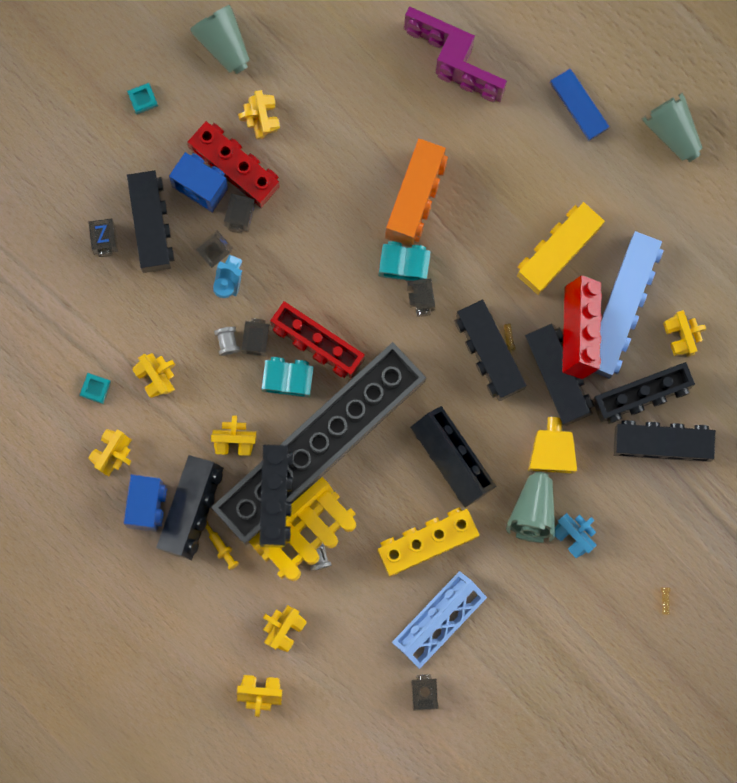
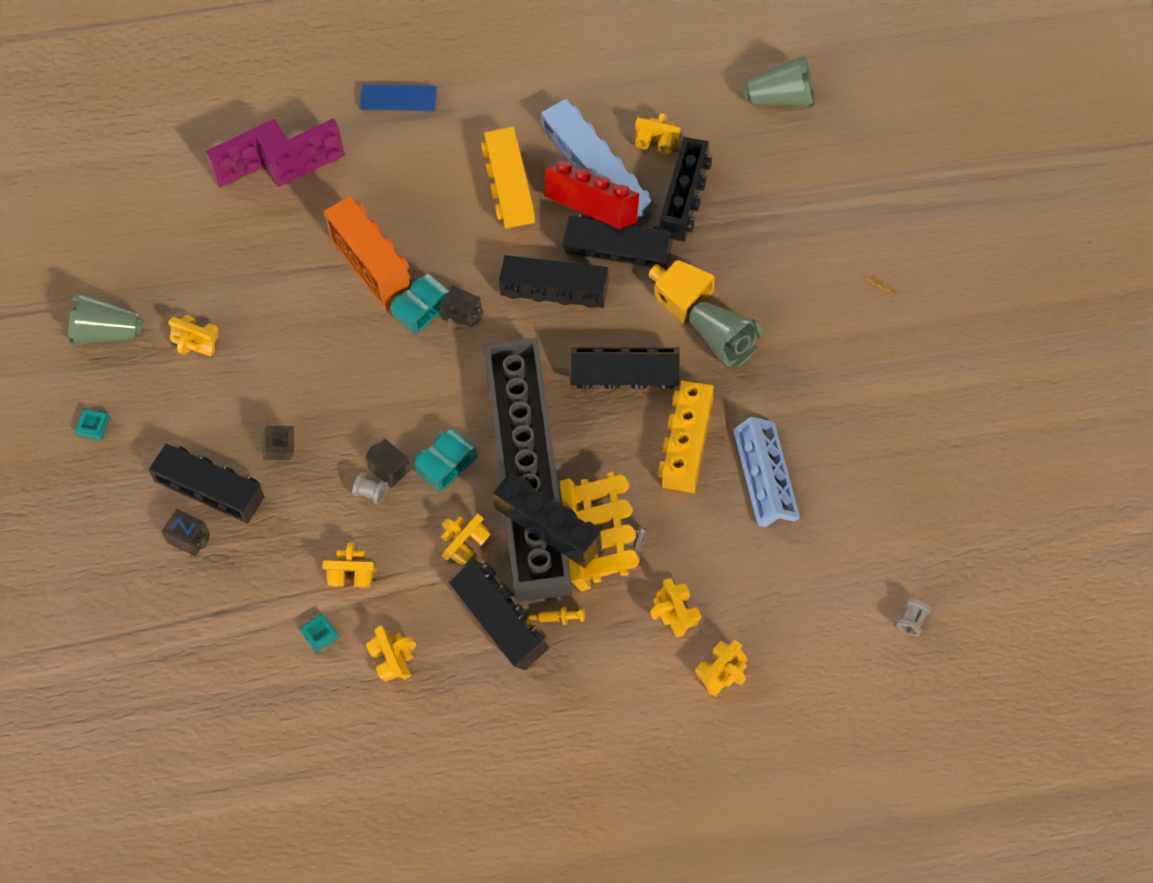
camera: 45 degrees left, 20 degrees down
(144, 503) = (463, 648): blue brick -> none
(199, 181) = (207, 416): blue brick -> none
(228, 277) = (313, 445): dark azure hips -> none
(239, 168) = (216, 383): red brick -> none
(239, 213) = (264, 405): clear smoke brick -> none
(316, 339) = (432, 410): red brick -> none
(420, 702) = (831, 530): clear smoke brick -> none
(583, 541) = (782, 314): dark azure hips -> none
(664, 442) = (740, 200): black brick -> none
(676, 128) = (478, 37): sand green cone -> none

